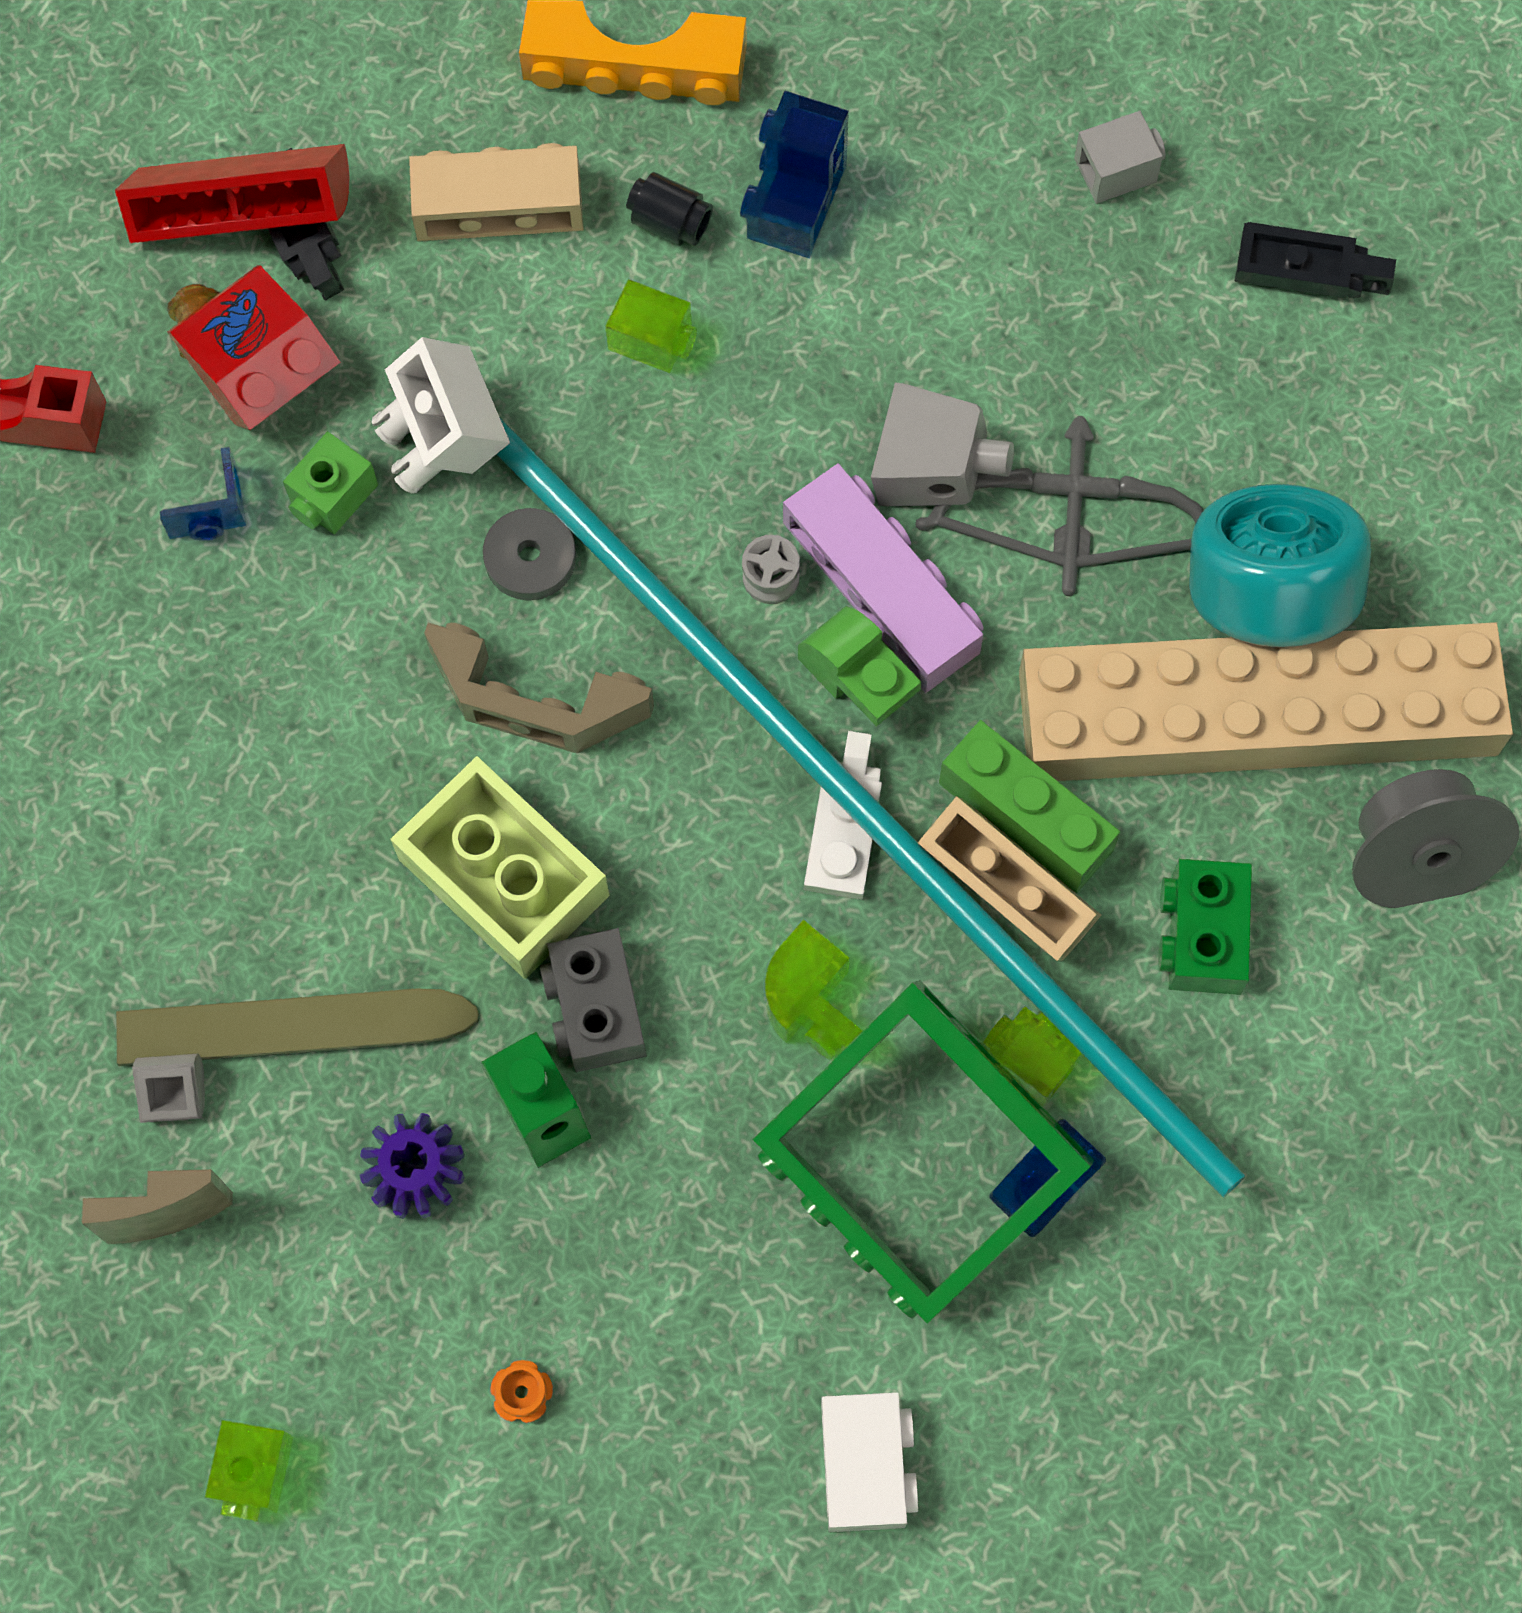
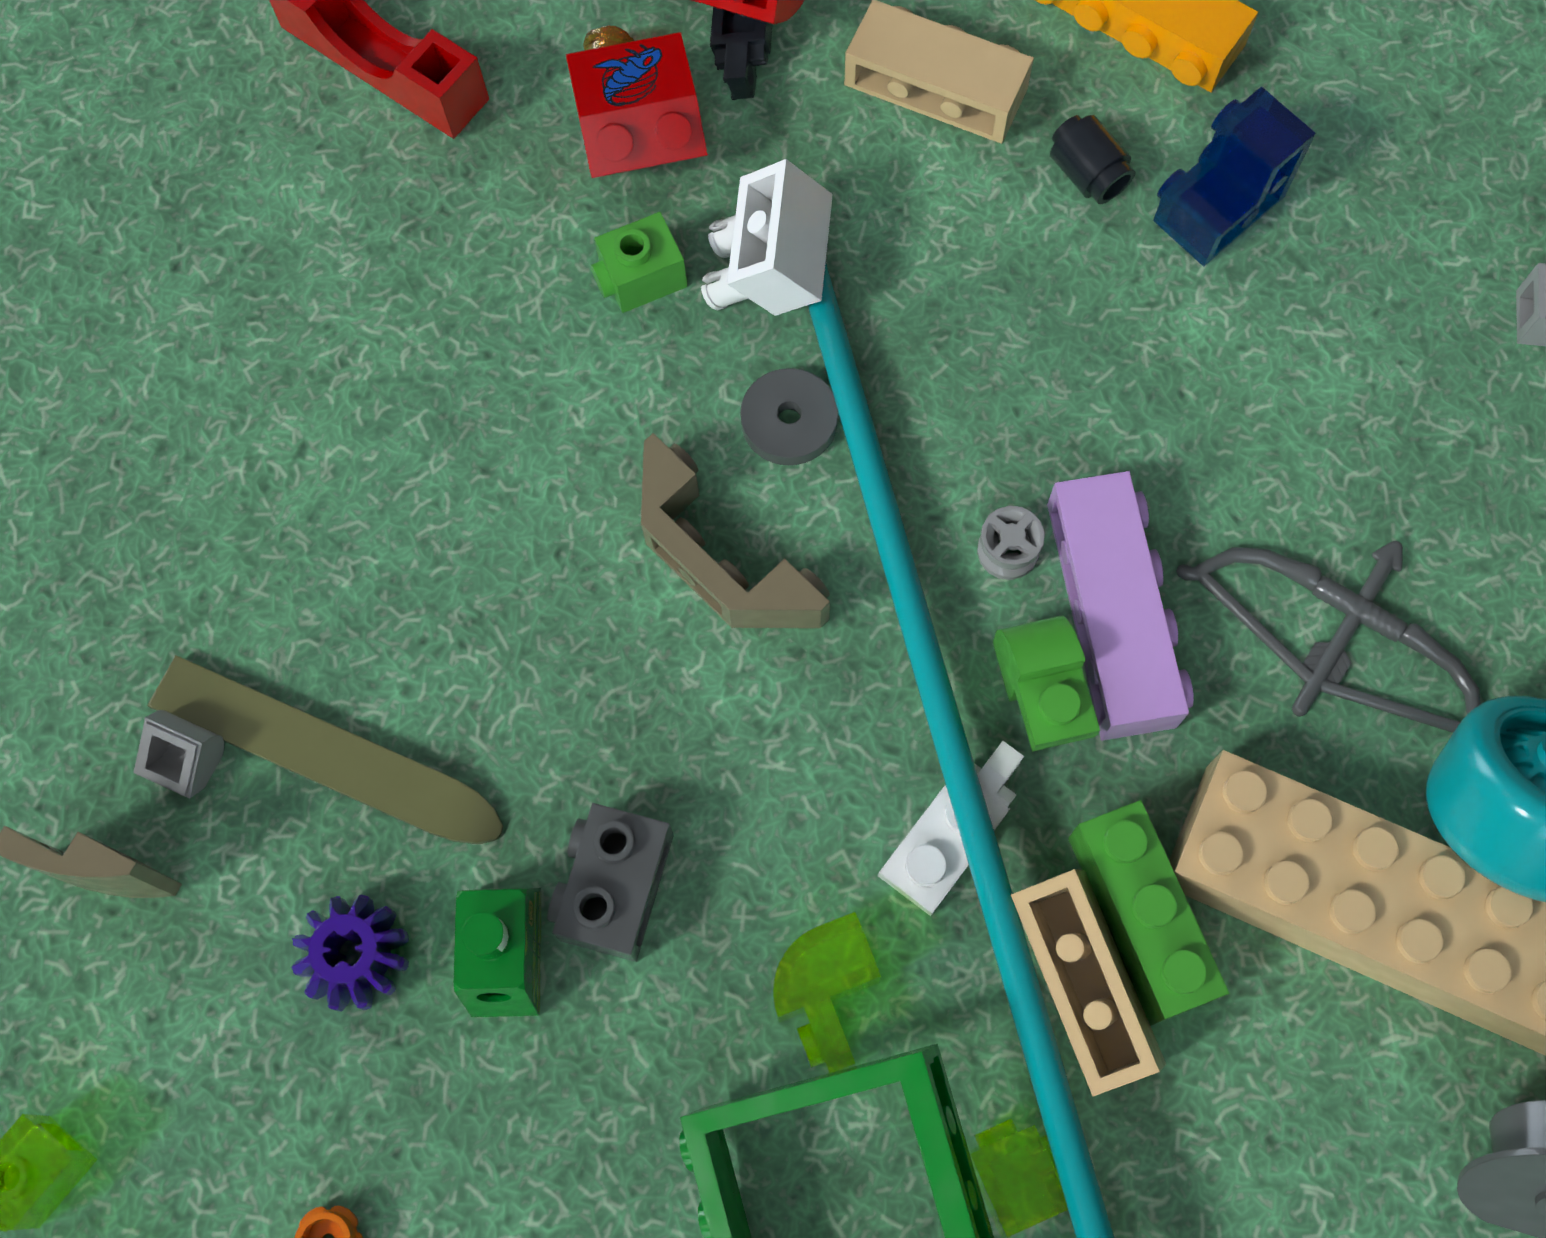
camera: 30 degrees right, 0 degrees up
(209, 519) = (518, 243): bracket -> none
(500, 866) = (590, 703): yellowish green brick -> none
(650, 326) = (1016, 257): clear neon green brick -> none
(934, 450) = (1233, 505): light grey torso -> none
(1208, 926) = (1273, 1139): green brick -> none

